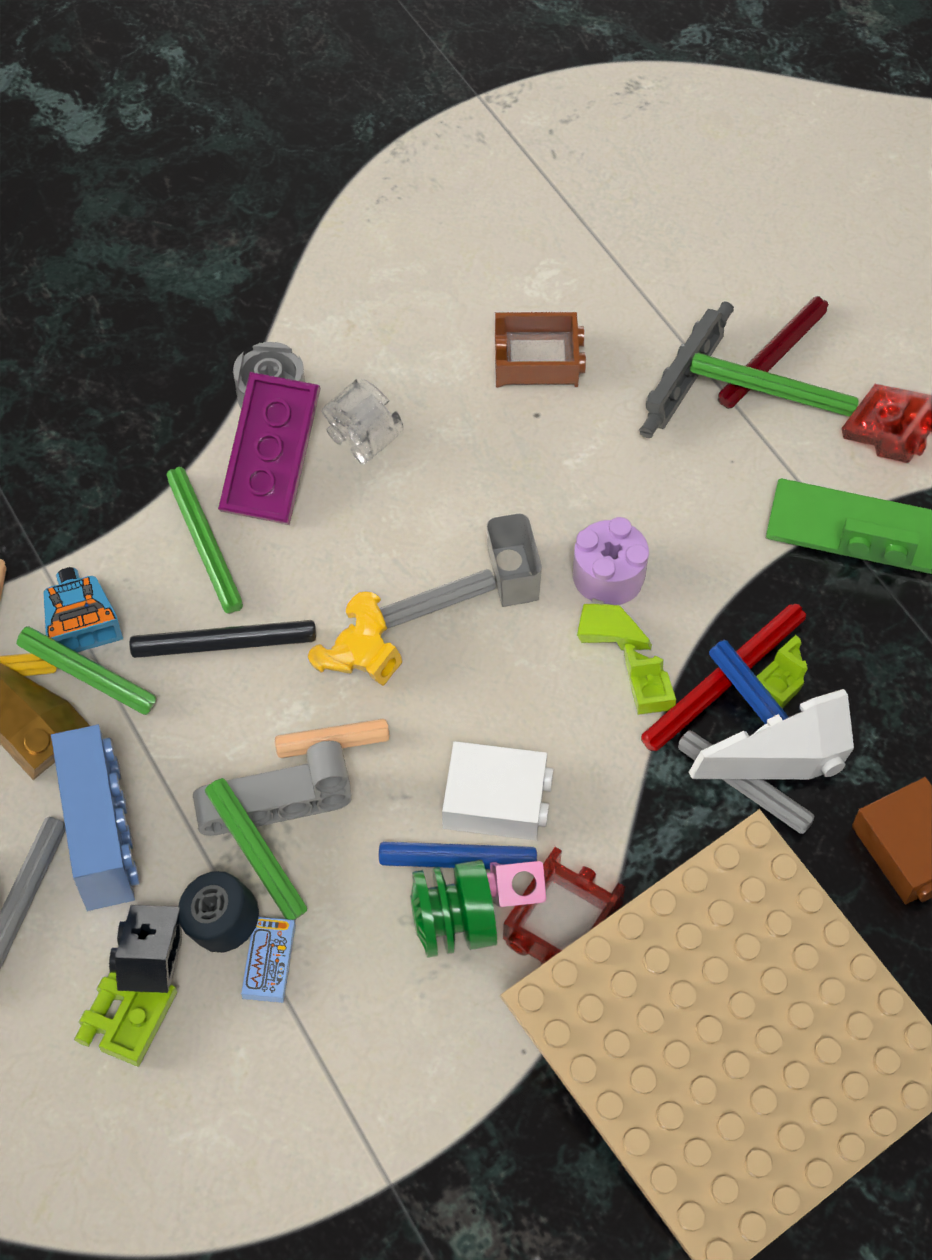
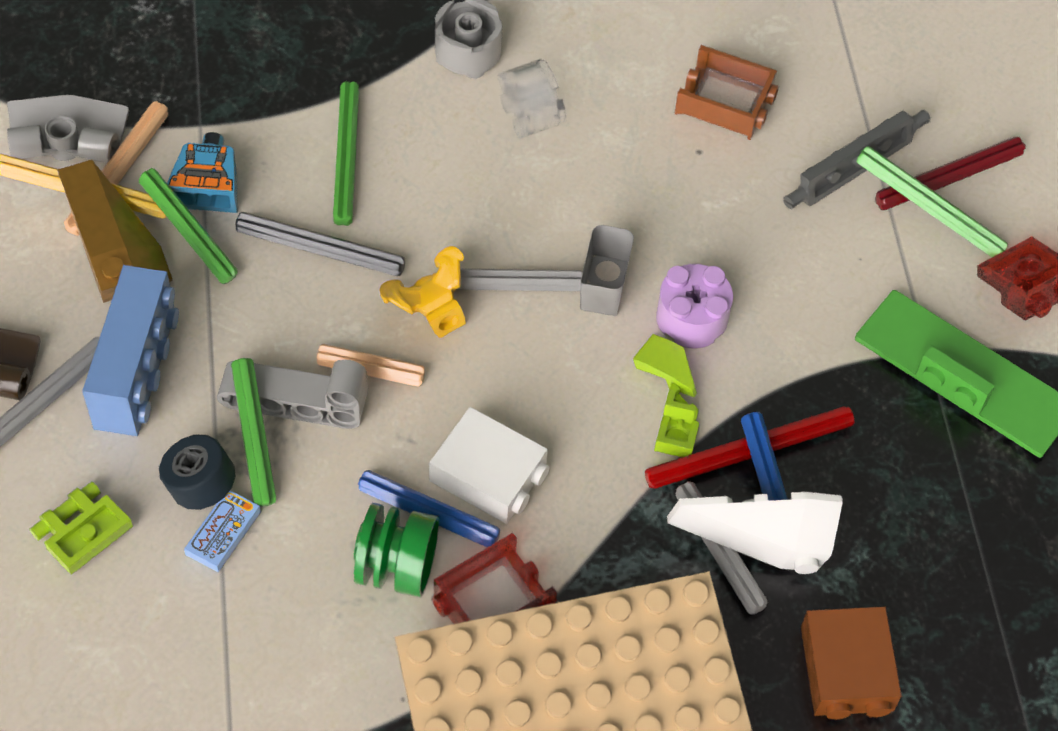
camera: 20 degrees right, 0 degrees up
(146, 949) = (121, 478): black brick -> none
(269, 448) = (437, 93): magenta tile -> none
(501, 887) = (445, 549): bright pink bracket -> none
(786, 673) = (806, 468): lime slope -> none

